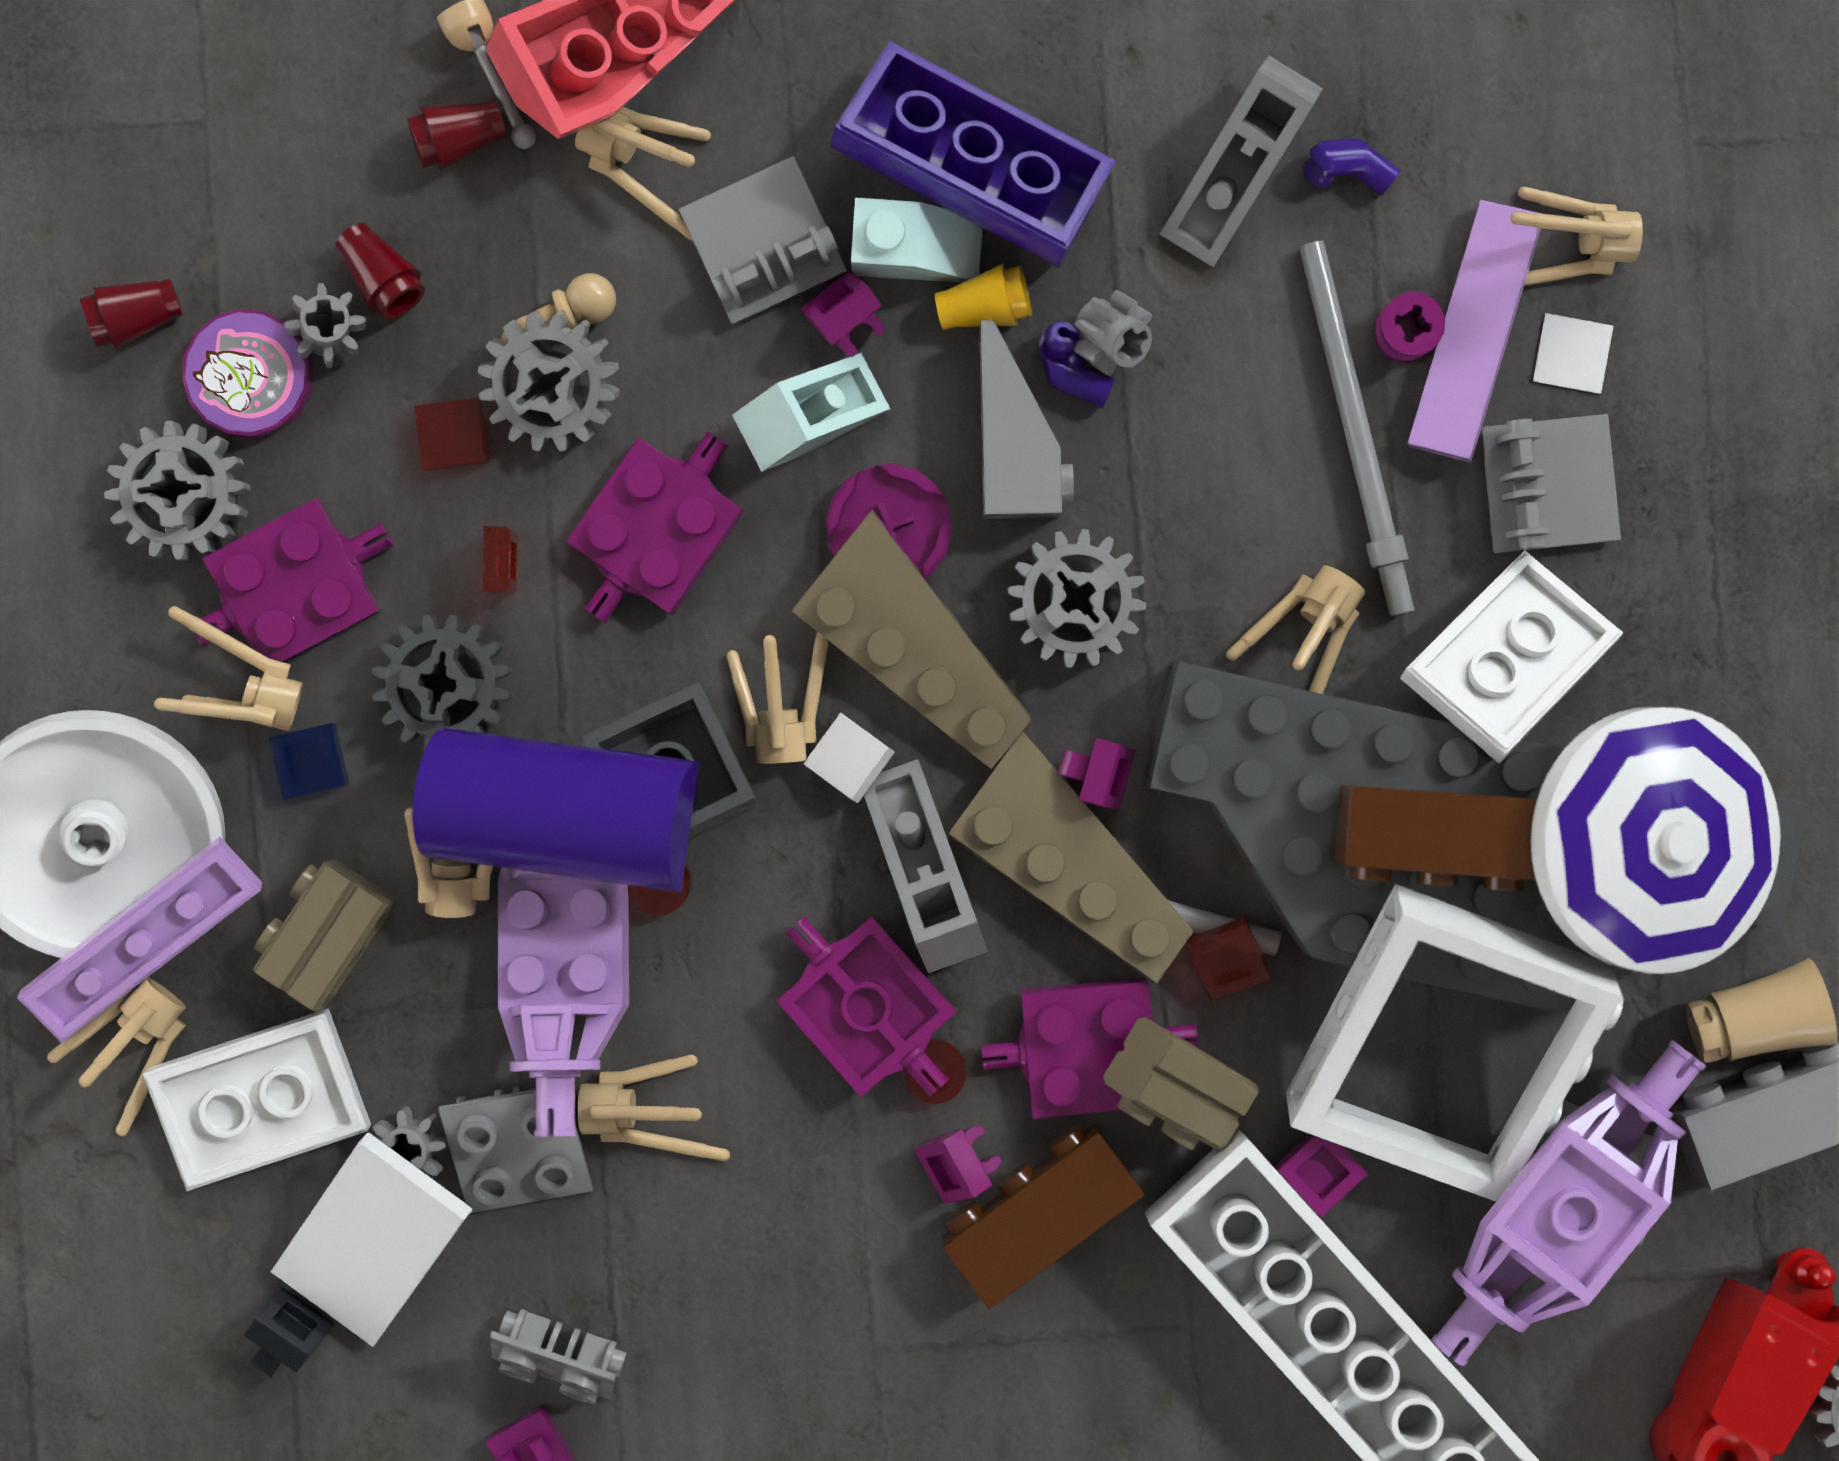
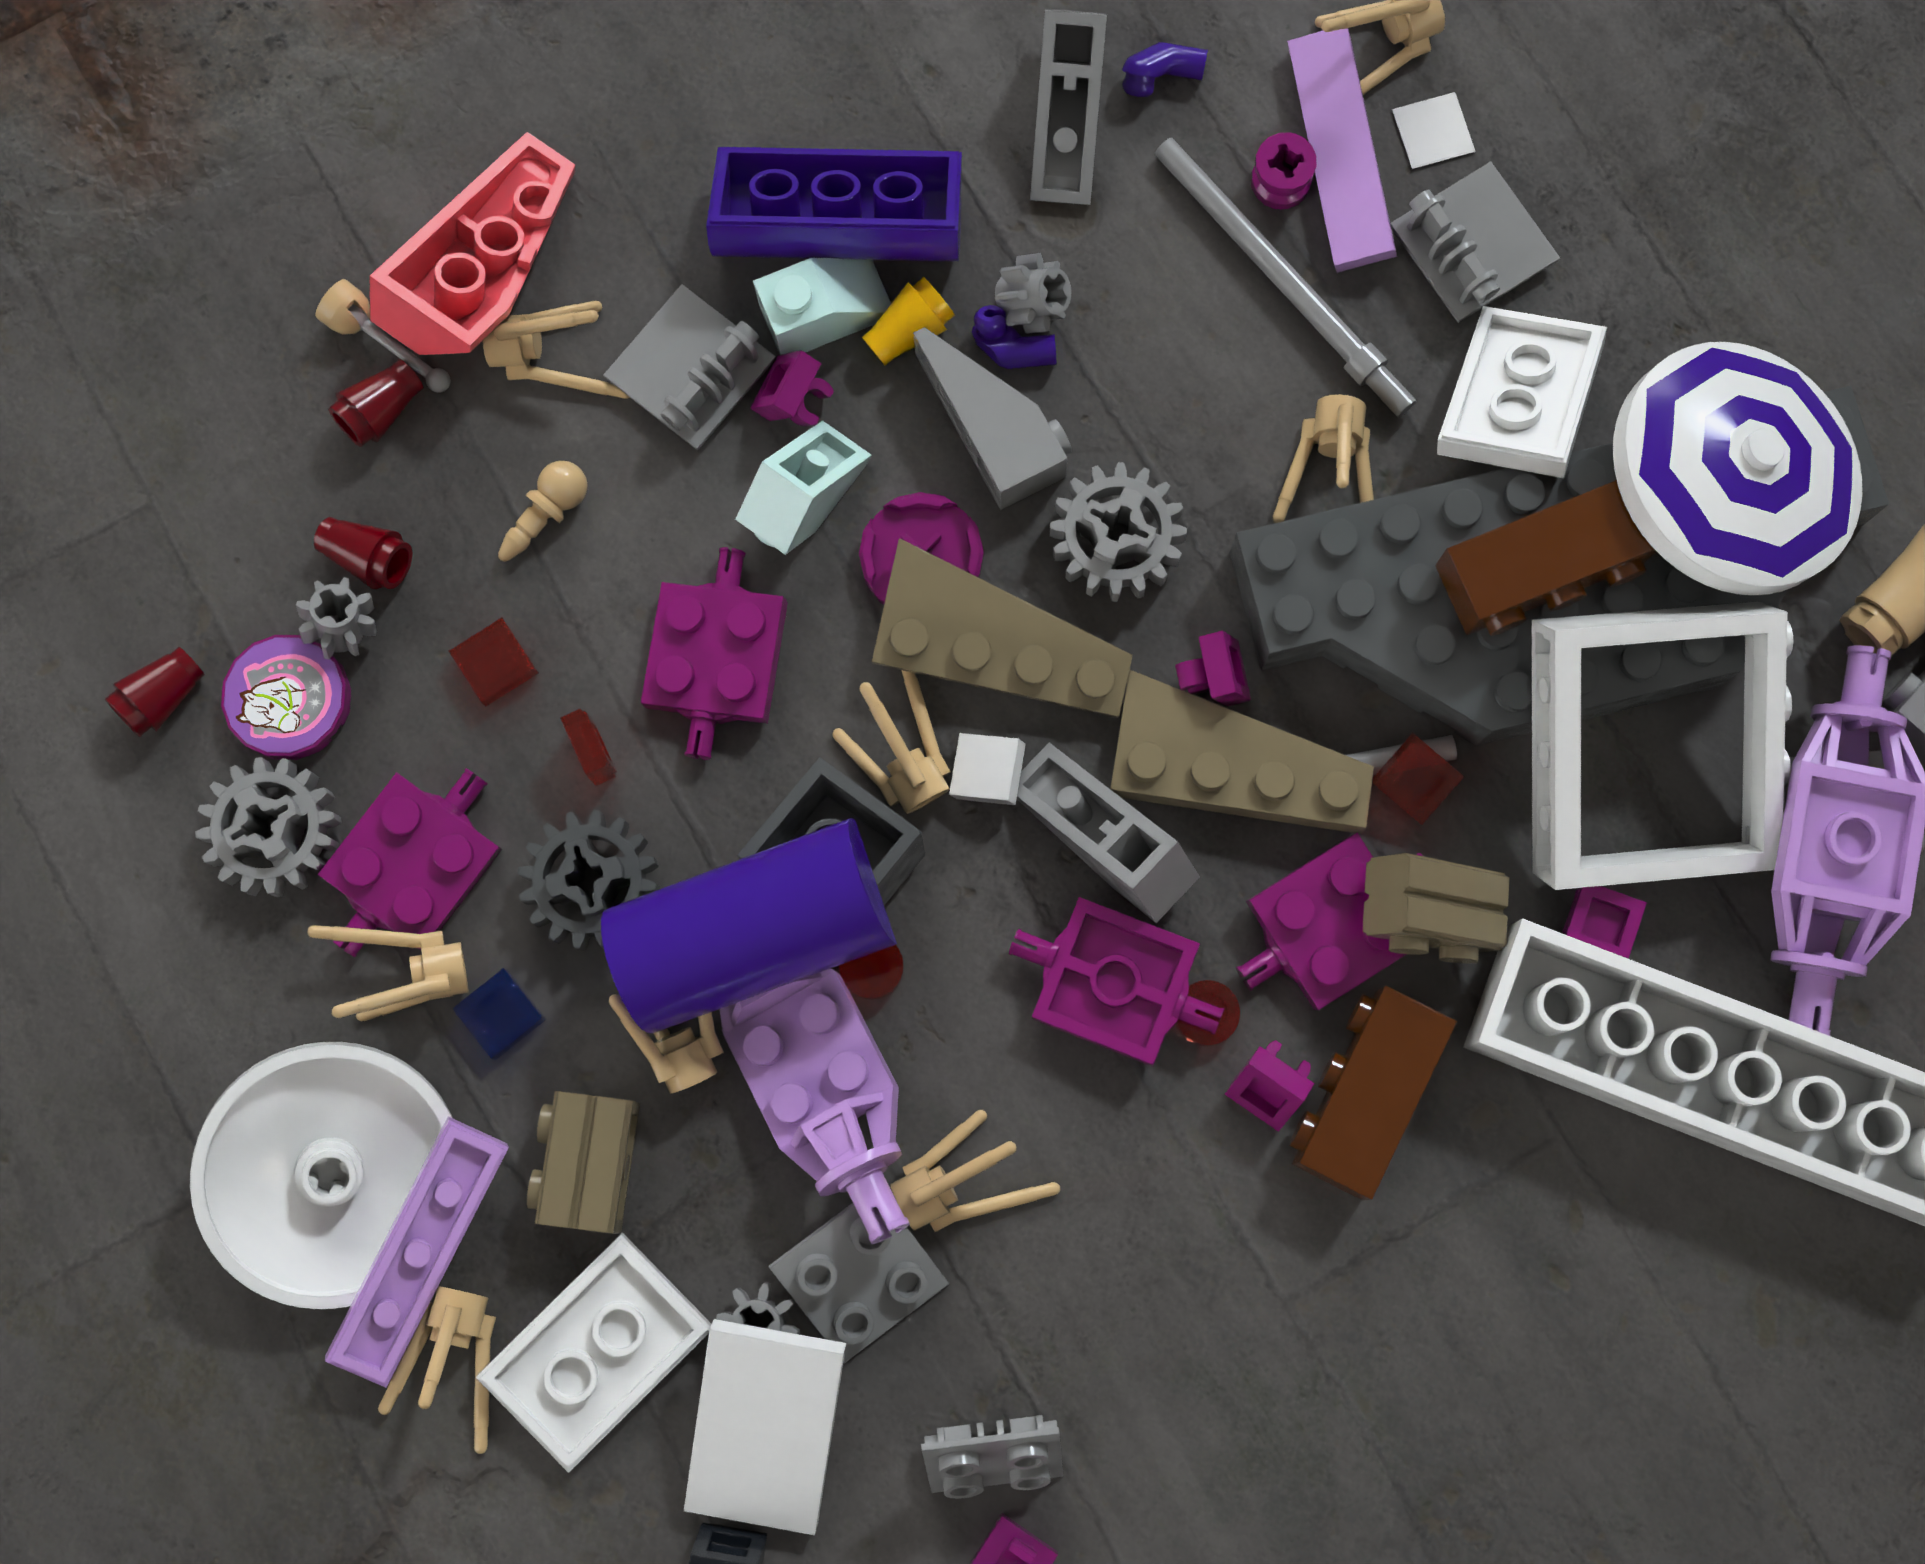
camera: 25 degrees left, 10 degrees down
(533, 361) = (534, 555): light grey gear -> none

